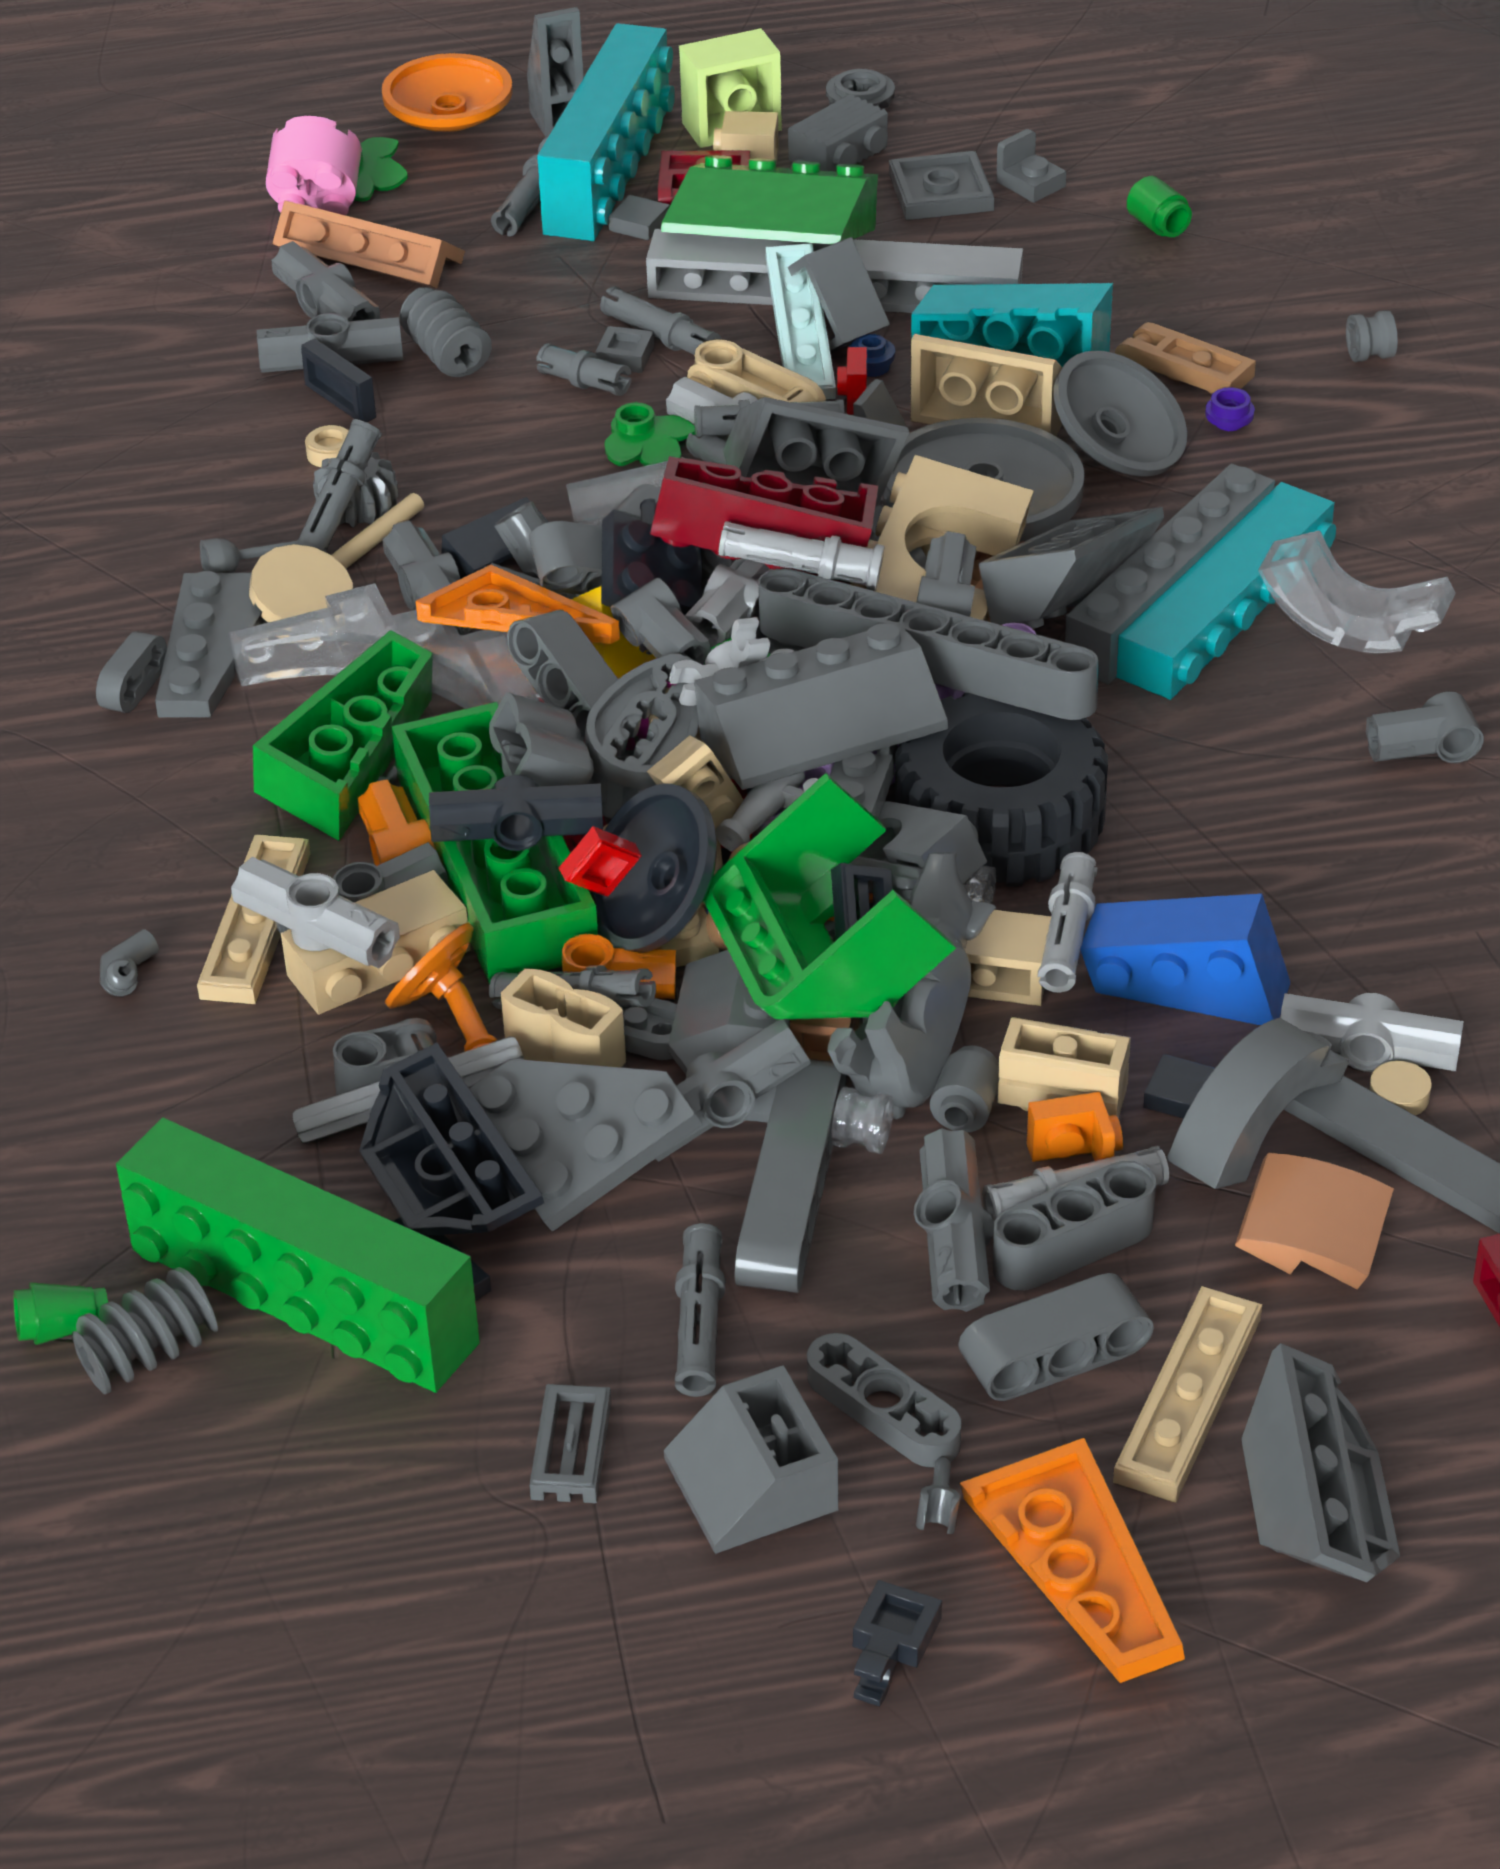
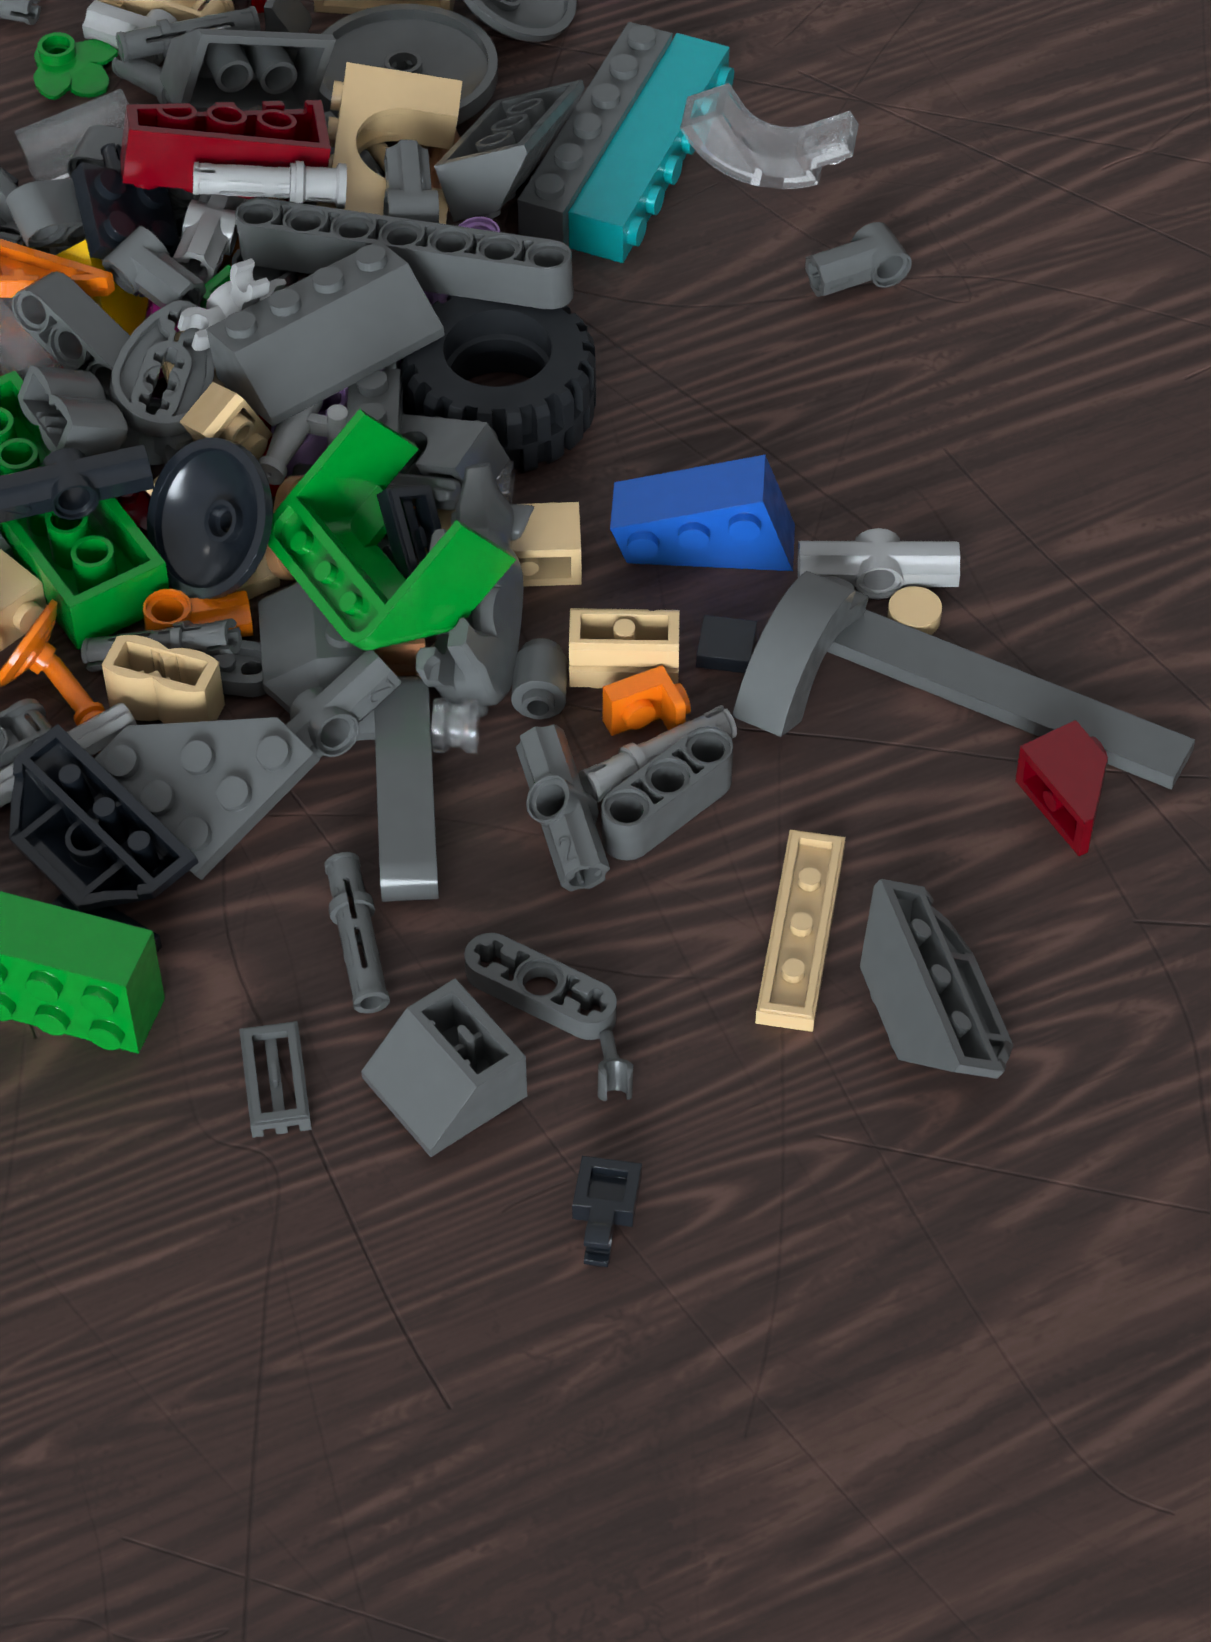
camera: 15 degrees left, 10 degrees up
(600, 861) = (161, 520): red tile -> none
(1055, 1336) = (676, 900): dark grey beam -> none
(1070, 907) = (593, 489): light grey pin -> none
(1078, 1550) = (743, 1092): orange wing -> none
(1315, 1216) = (871, 746): nougat slope -> none

